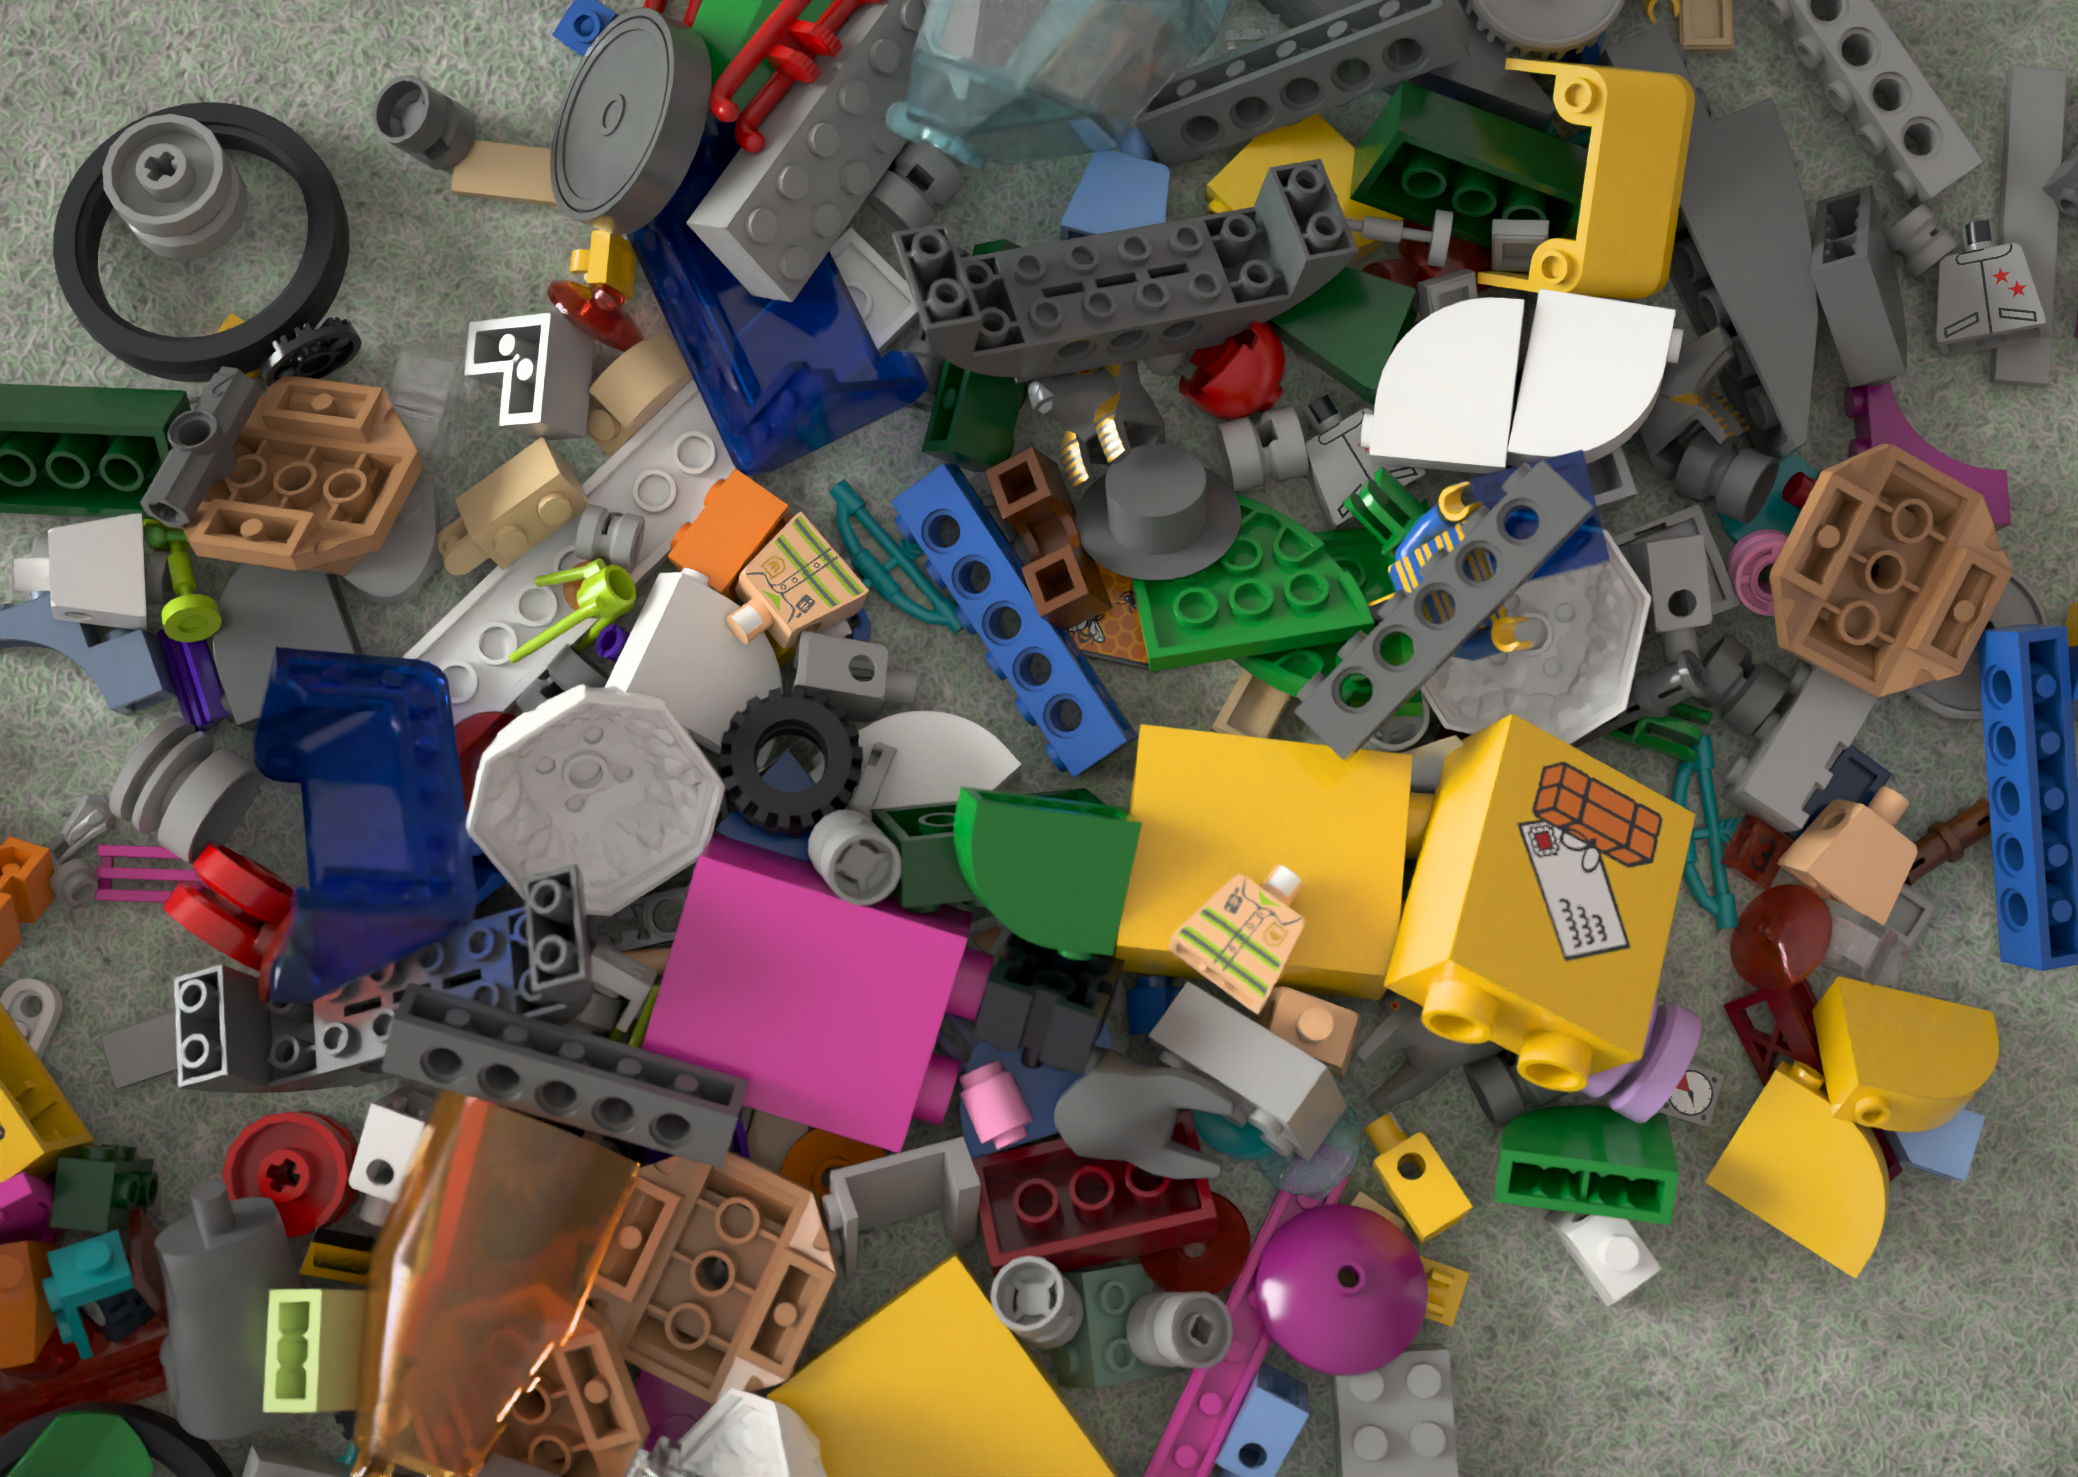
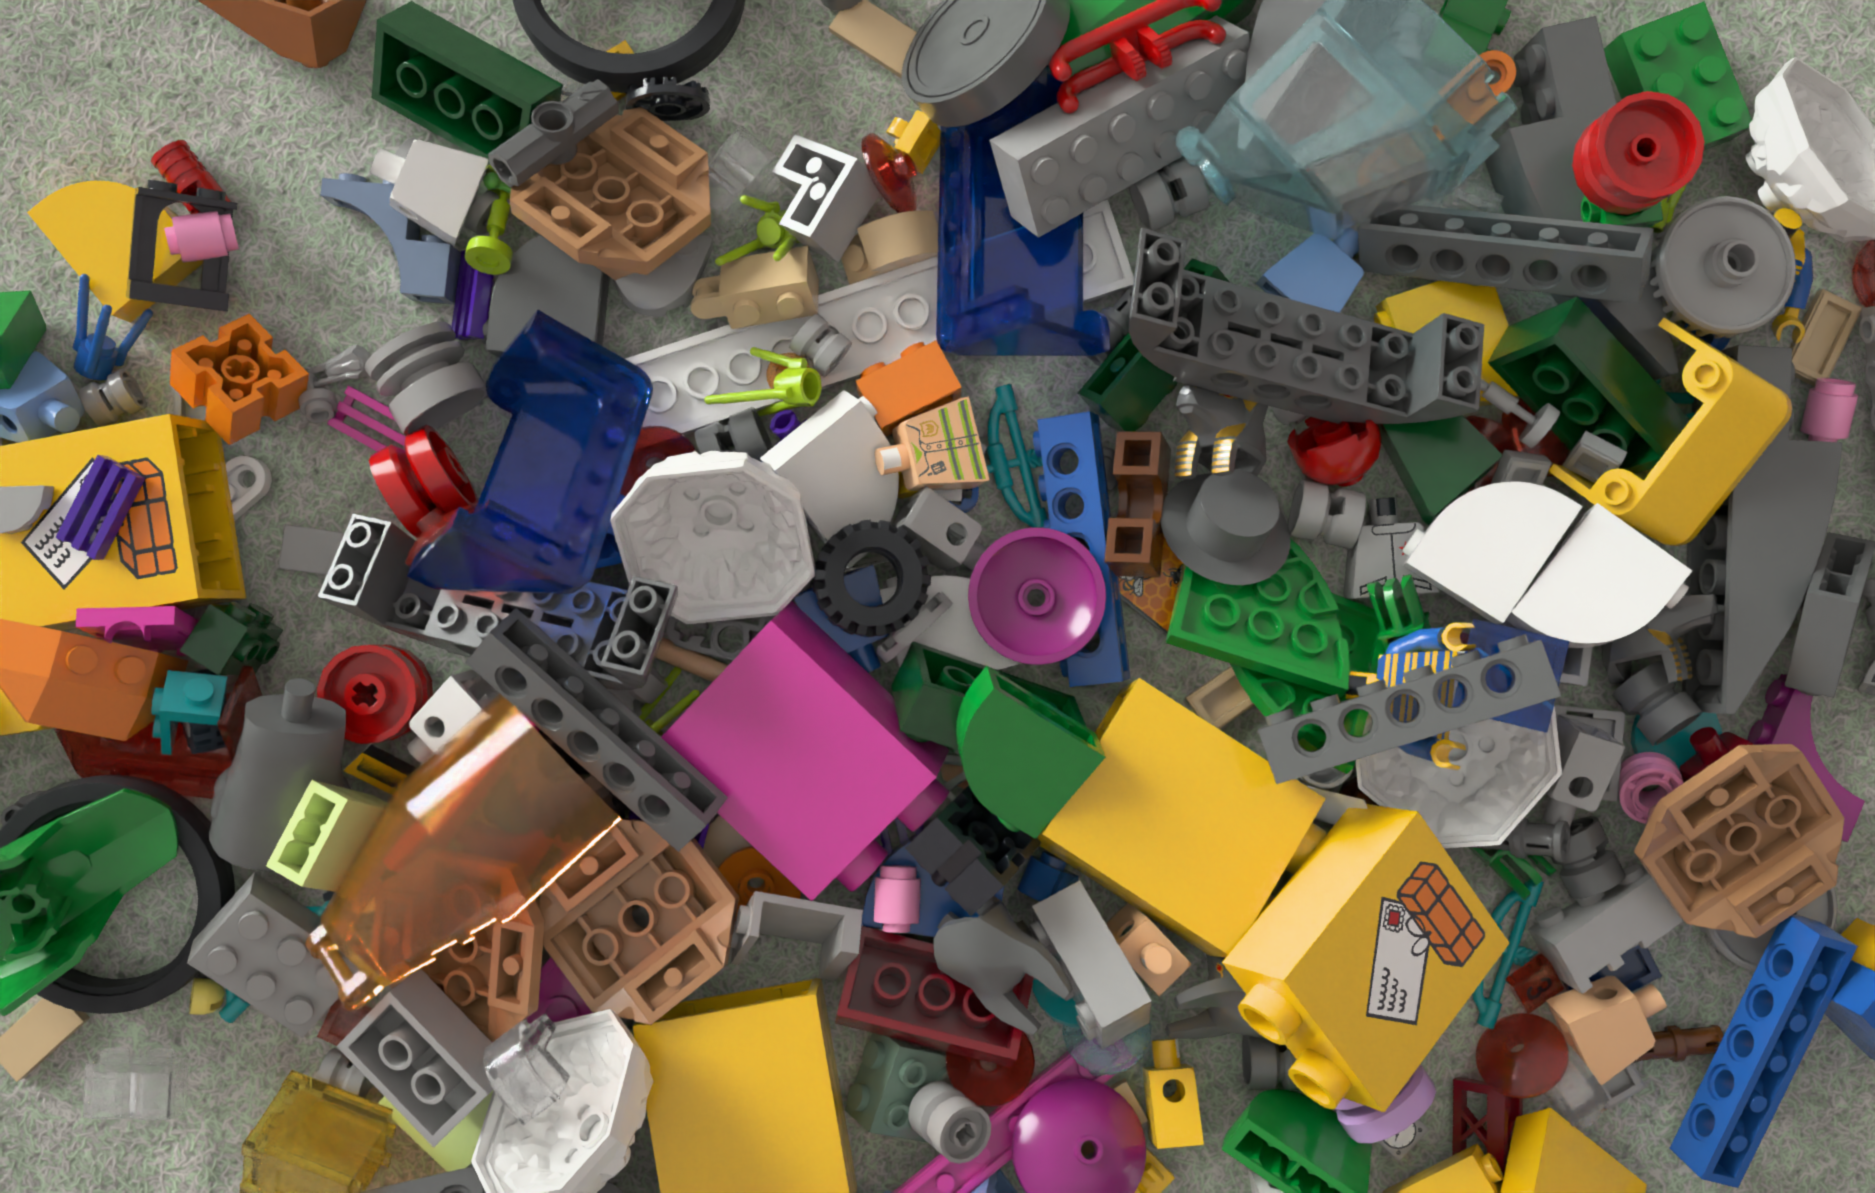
camera: 25 degrees right, 5 degrees up
(492, 441) = (769, 232): none -> lime plant
(621, 975) = (676, 669): white bracket -> none
(854, 857) = (883, 675): light grey wheel -> none
(977, 653) = (1042, 562): none -> magenta dish
(1024, 1300) = (857, 1055): light grey wheel -> none
(1243, 935) = (1140, 878): light nougat torso -> none
(1749, 69) = (1829, 410): none -> bright pink brick

